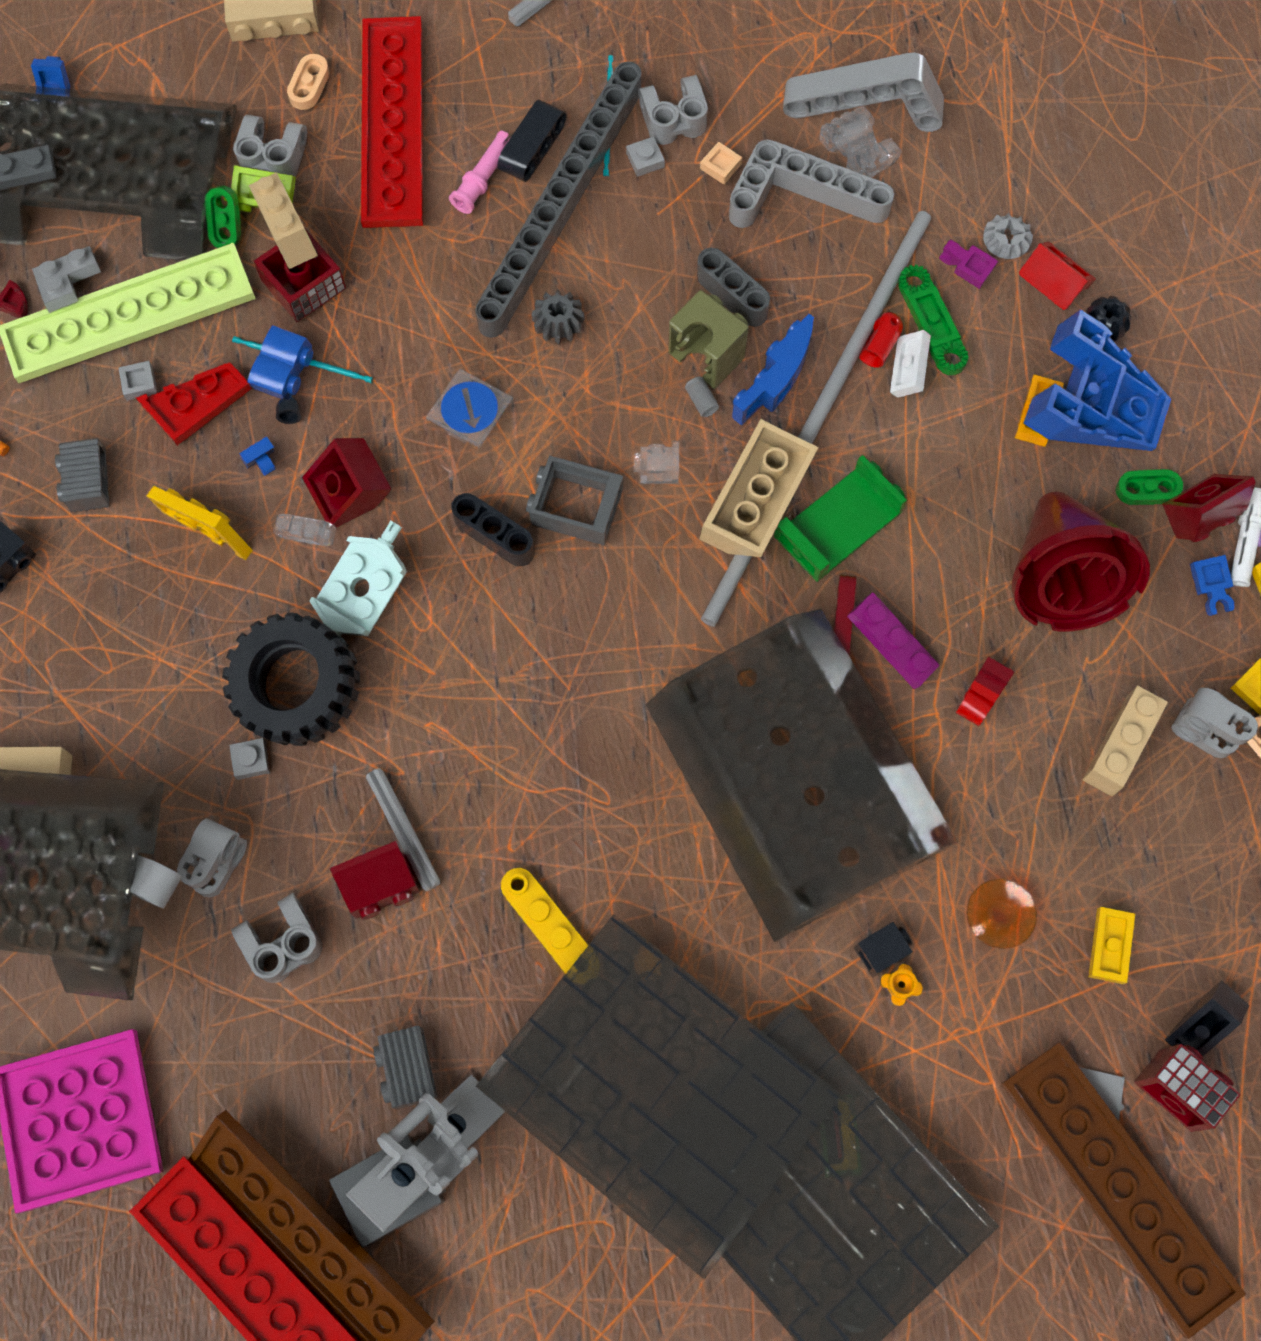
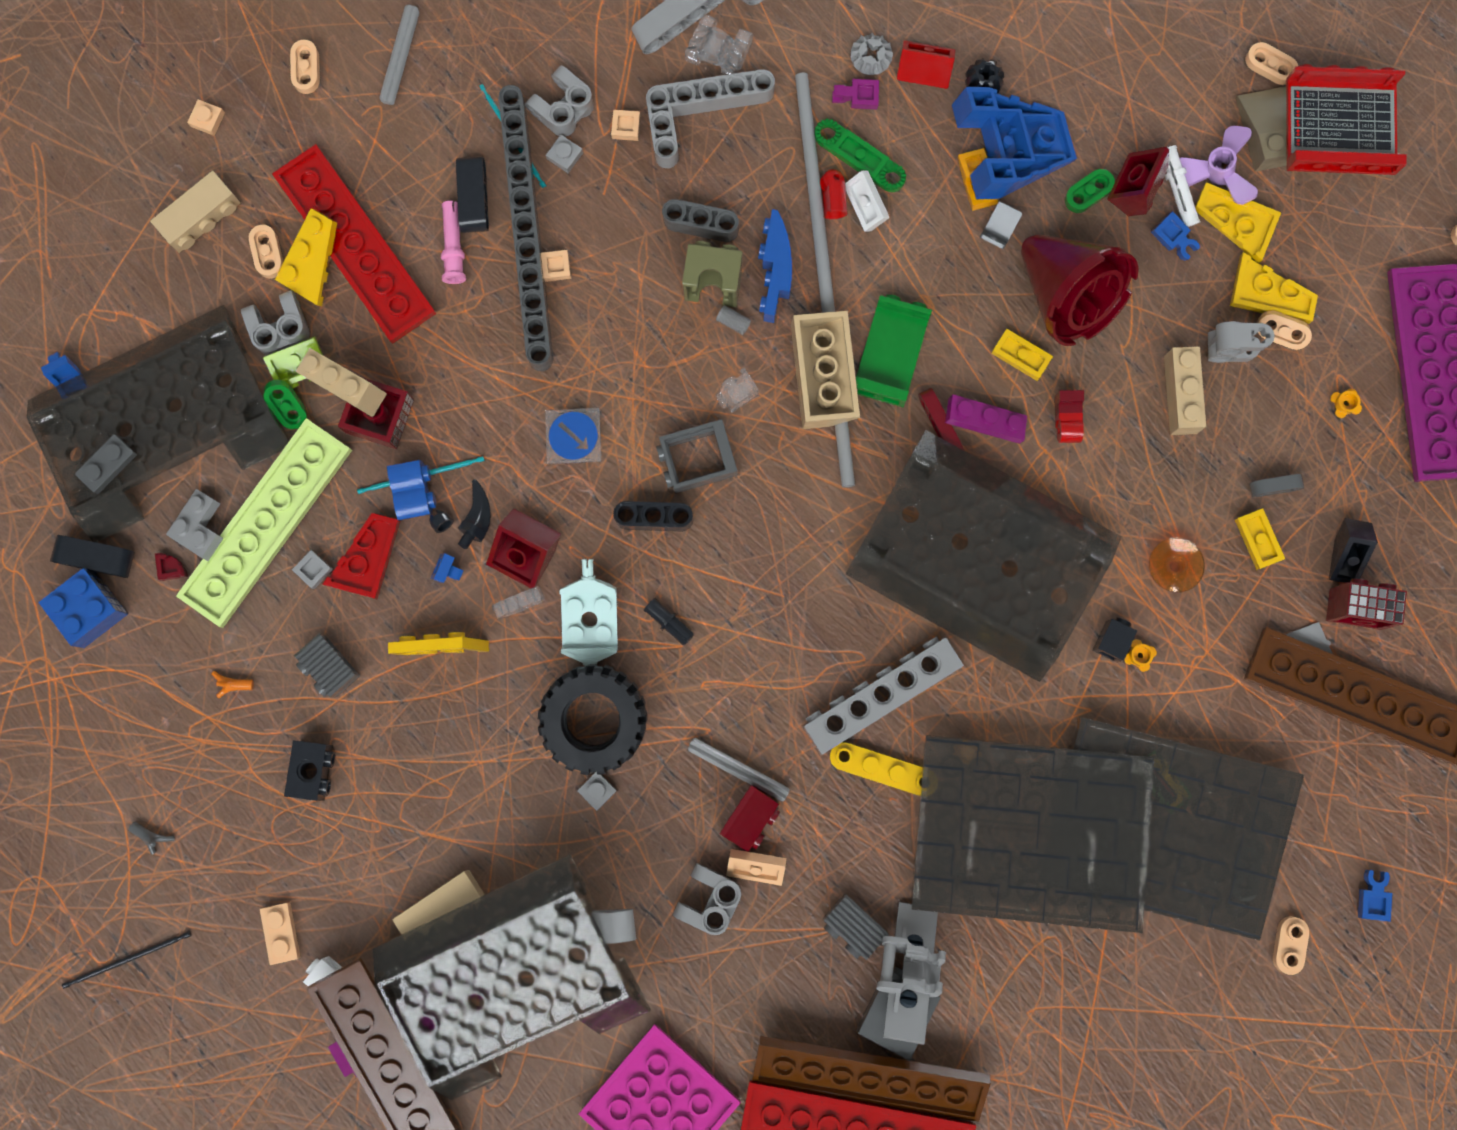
camera: 30 degrees left, 10 degrees up
(218, 850) = (625, 870): light grey piece -> none
(322, 432) = (477, 520): none -> black bar
(340, 106) = (308, 257): none -> yellow wing
(349, 937) = (756, 867): none -> light nougat plate
(436, 639) = (668, 621): none -> black axle
(558, 316) = (580, 319): dark grey gear -> none
(565, 247) = (555, 265): none -> light nougat plate
(581, 859) = (945, 664): none -> light grey brick
(973, 602) = (1022, 354): none -> yellow plate
(1034, 465) = (1001, 225): none -> bracket
(1166, 900) = (1276, 485): none -> dark grey beam

